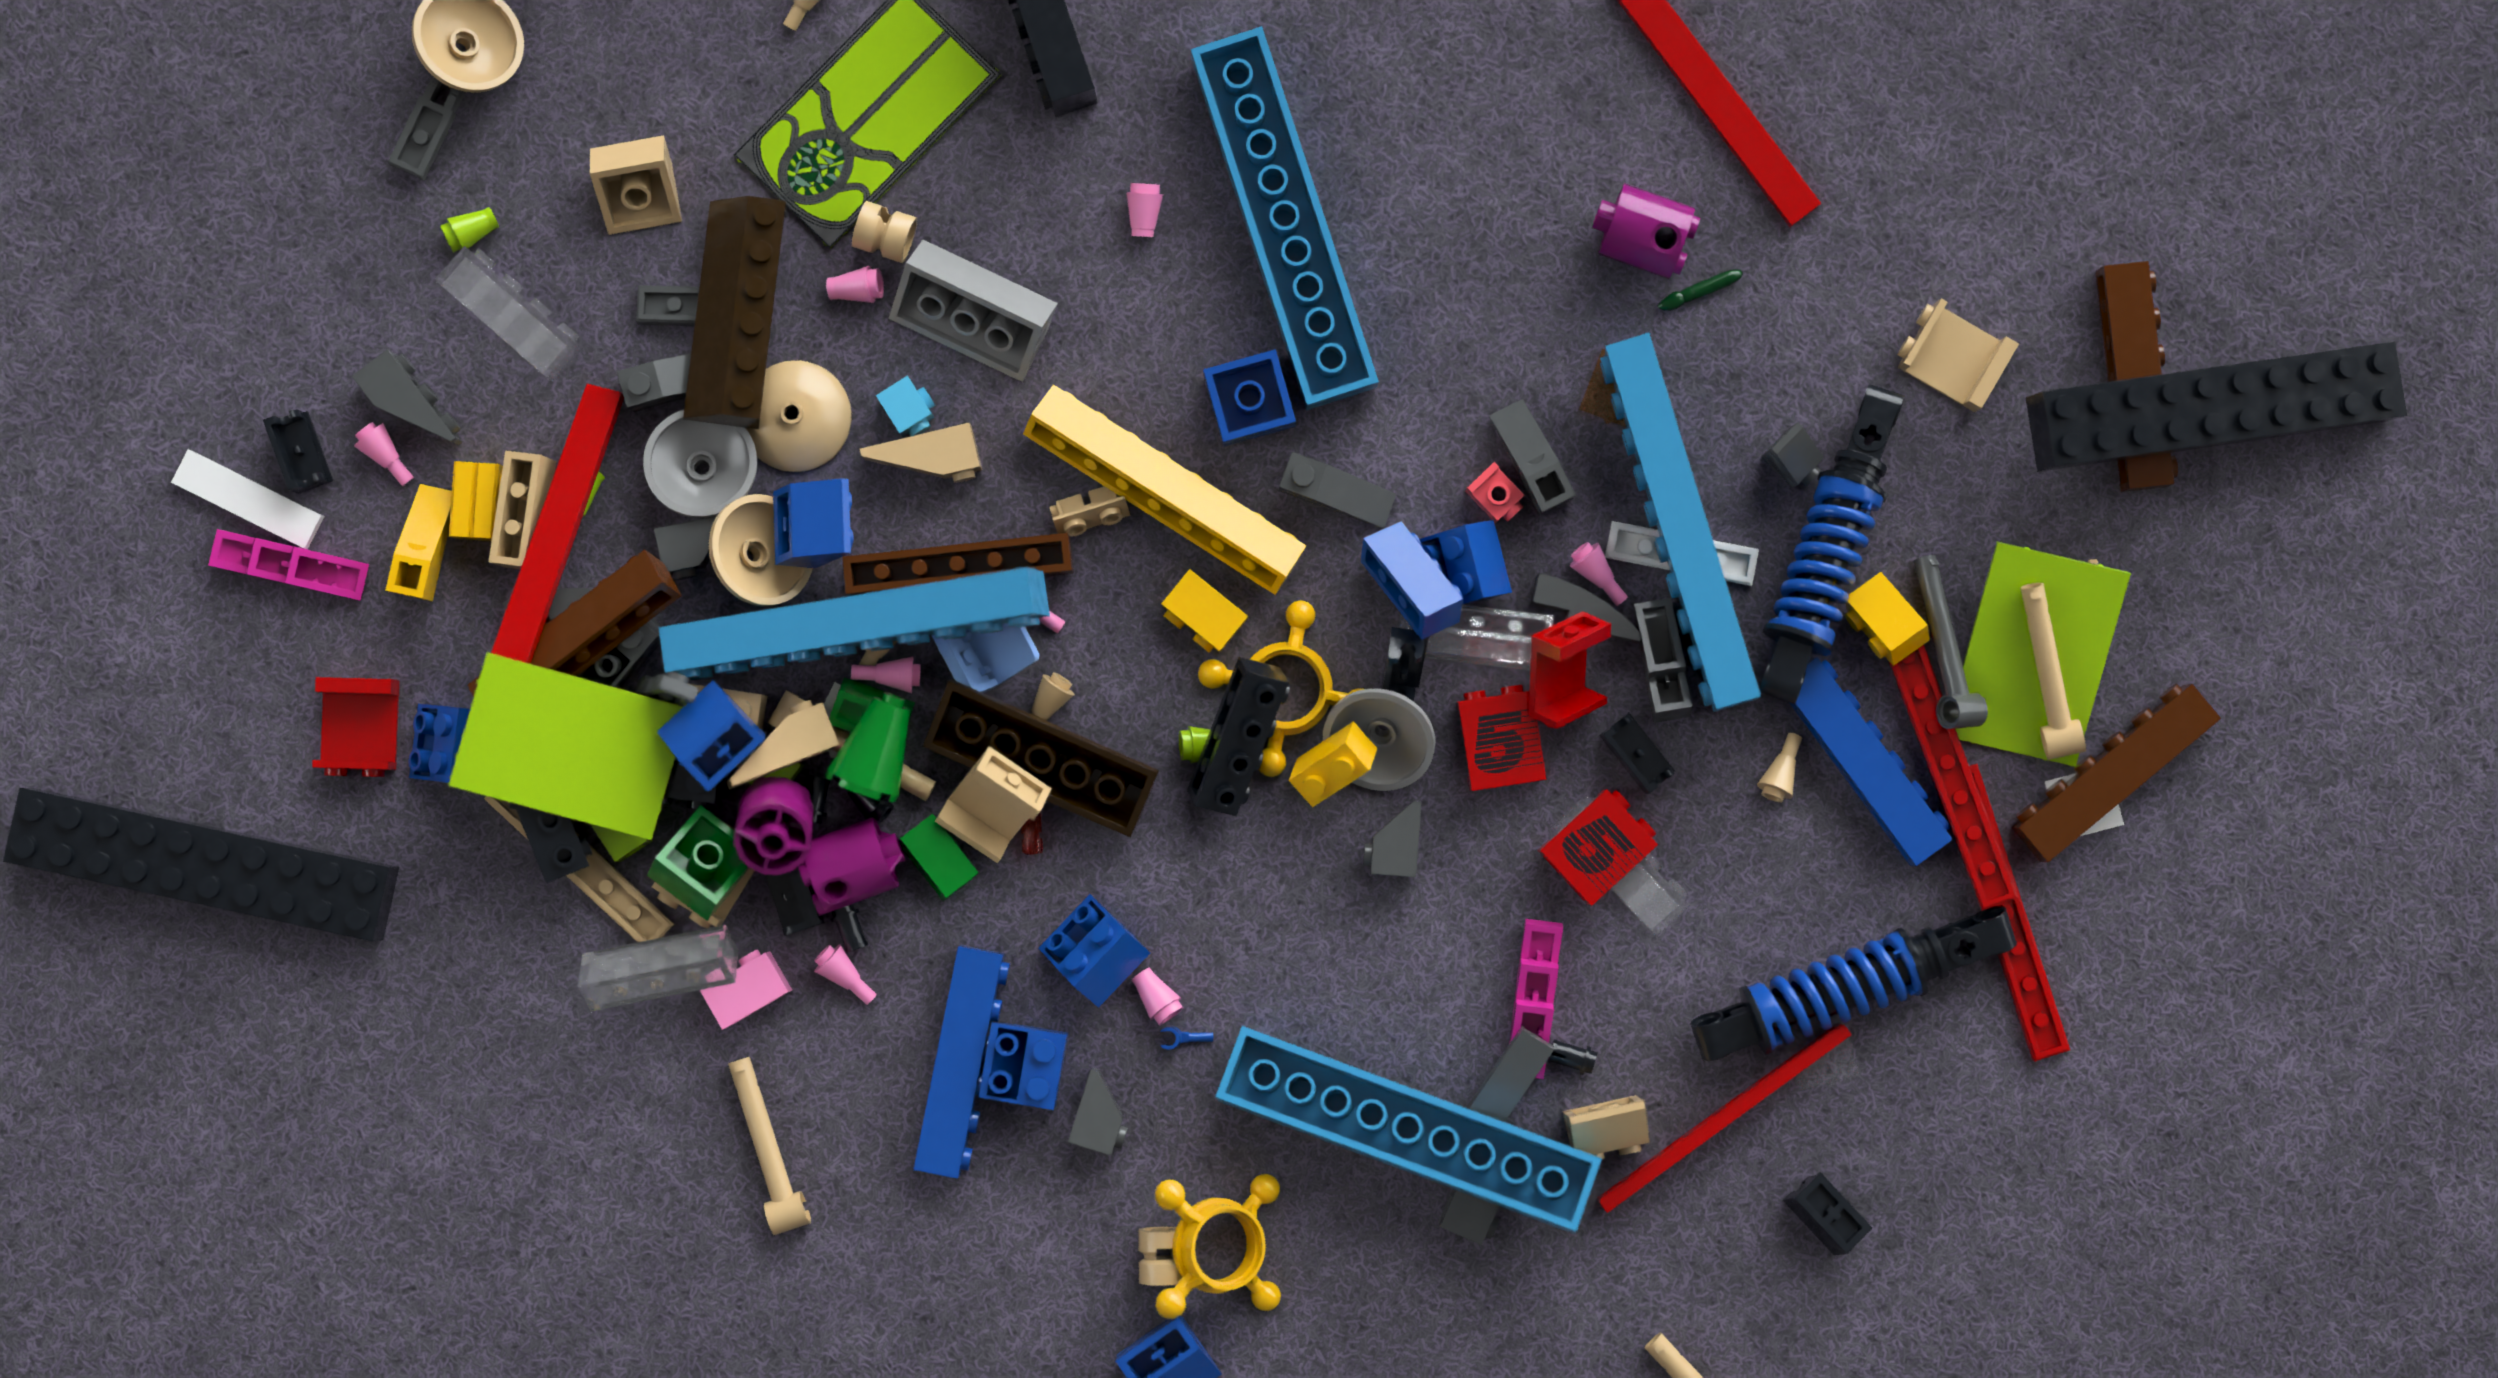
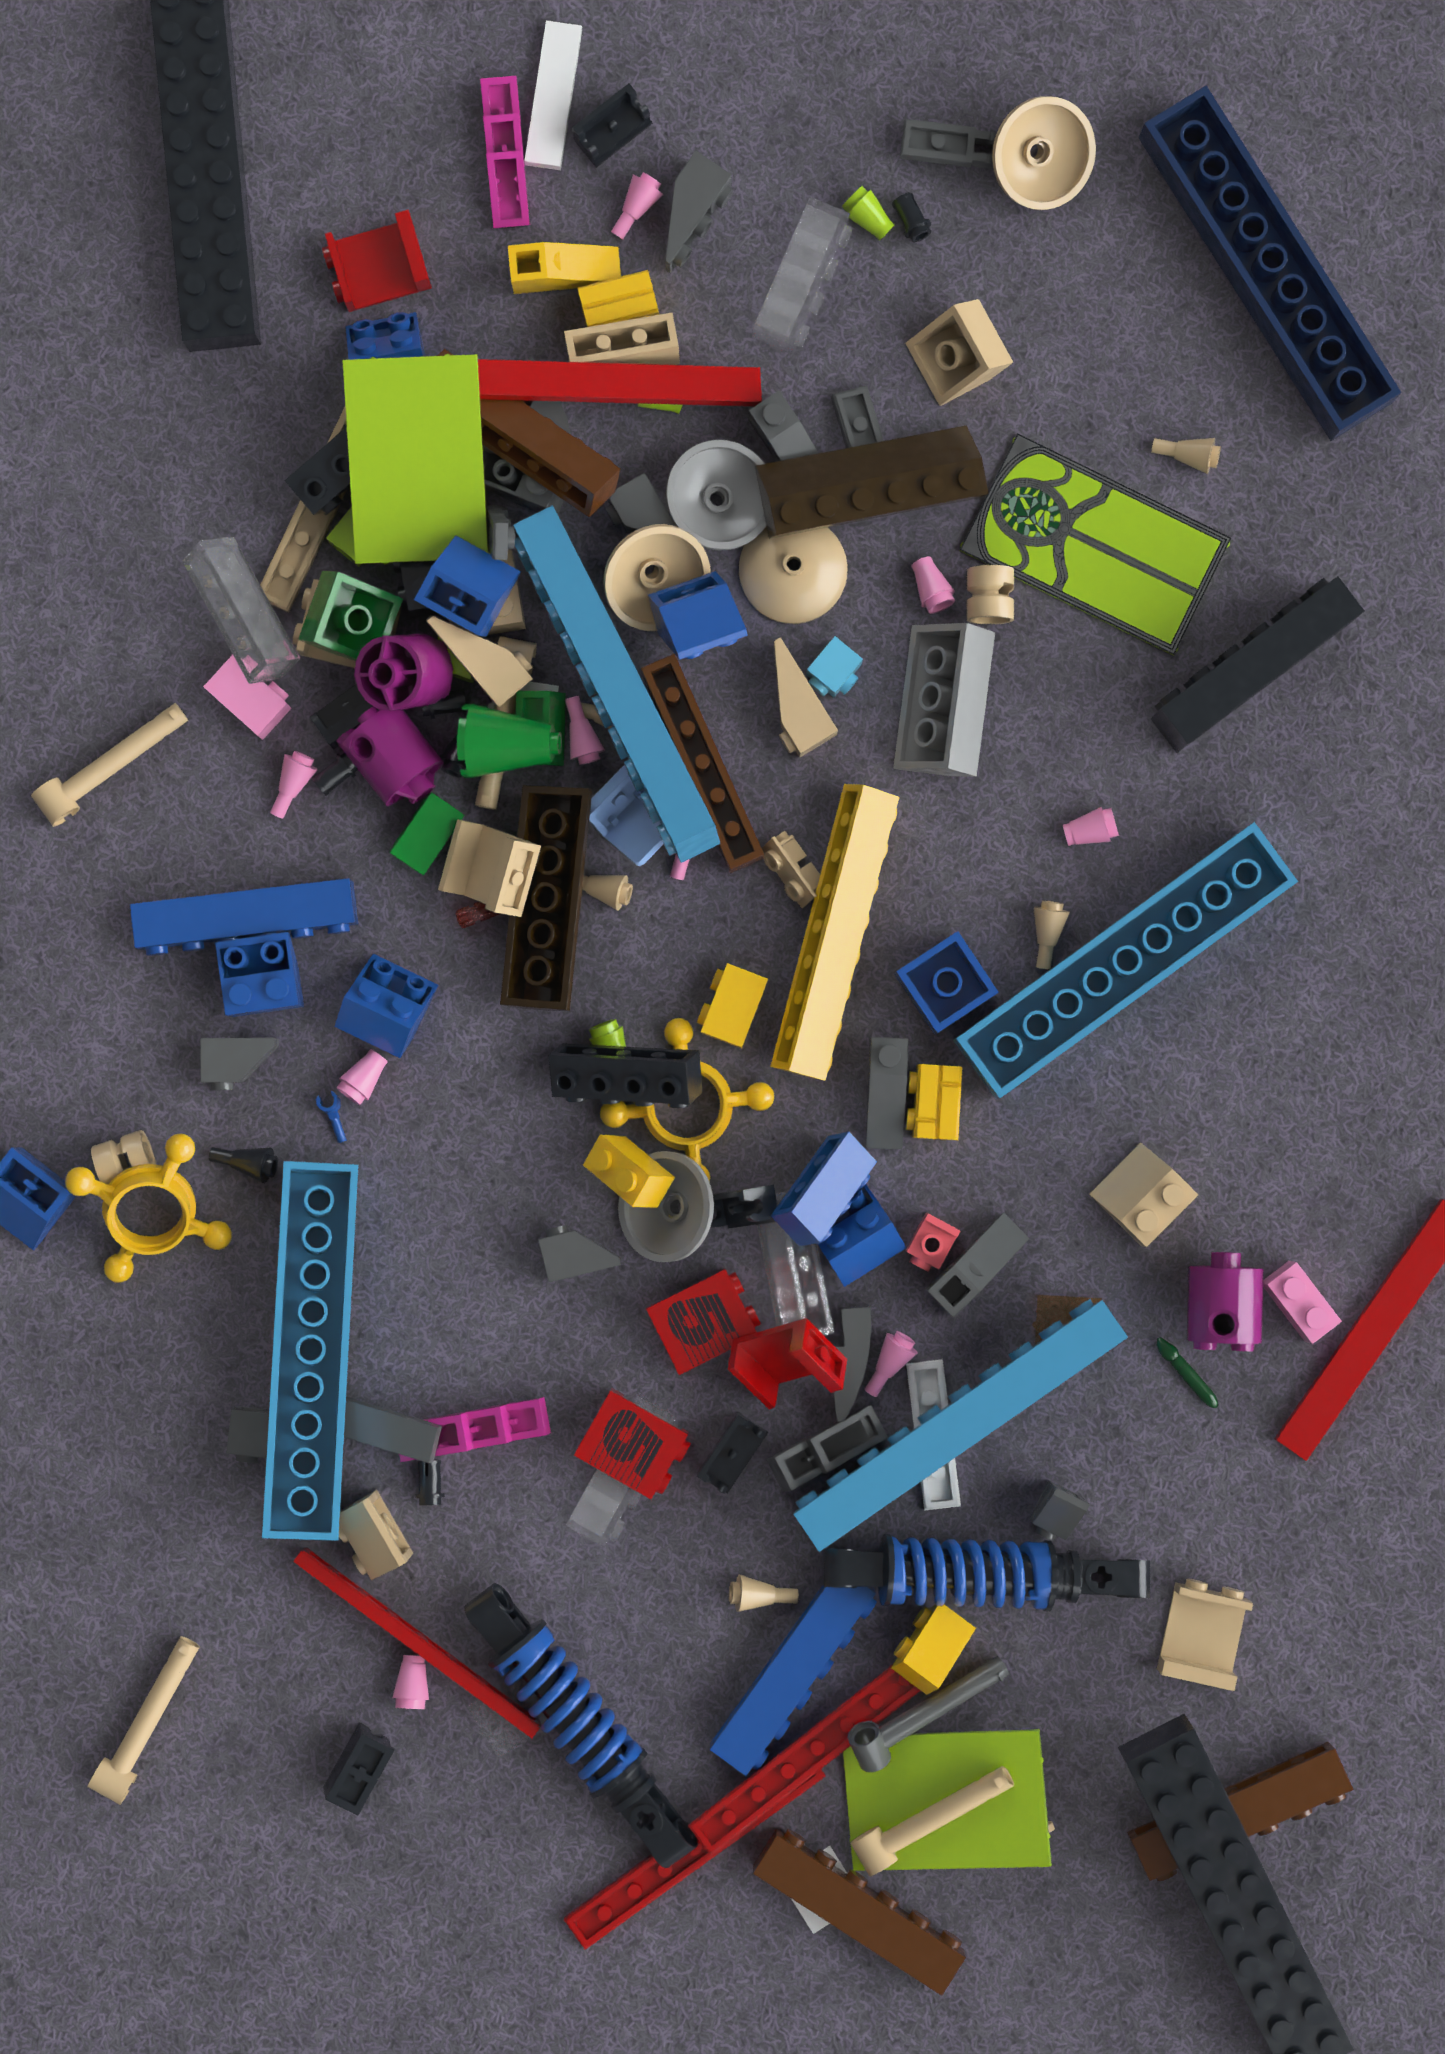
camera: 75 degrees right, 0 degrees up
(487, 187) = (912, 218): none -> black pin
(1206, 1128) = (255, 1163): none -> black cone
(1224, 280) = (1049, 924): none -> tan cone
(1361, 446) = (935, 1102): none -> yellow brick
(1515, 275) = (1143, 1194): none -> tan slope
(1667, 157) = (1301, 1302): none -> bright pink brick
(1761, 1136) = (411, 1684): none -> bright pink cone

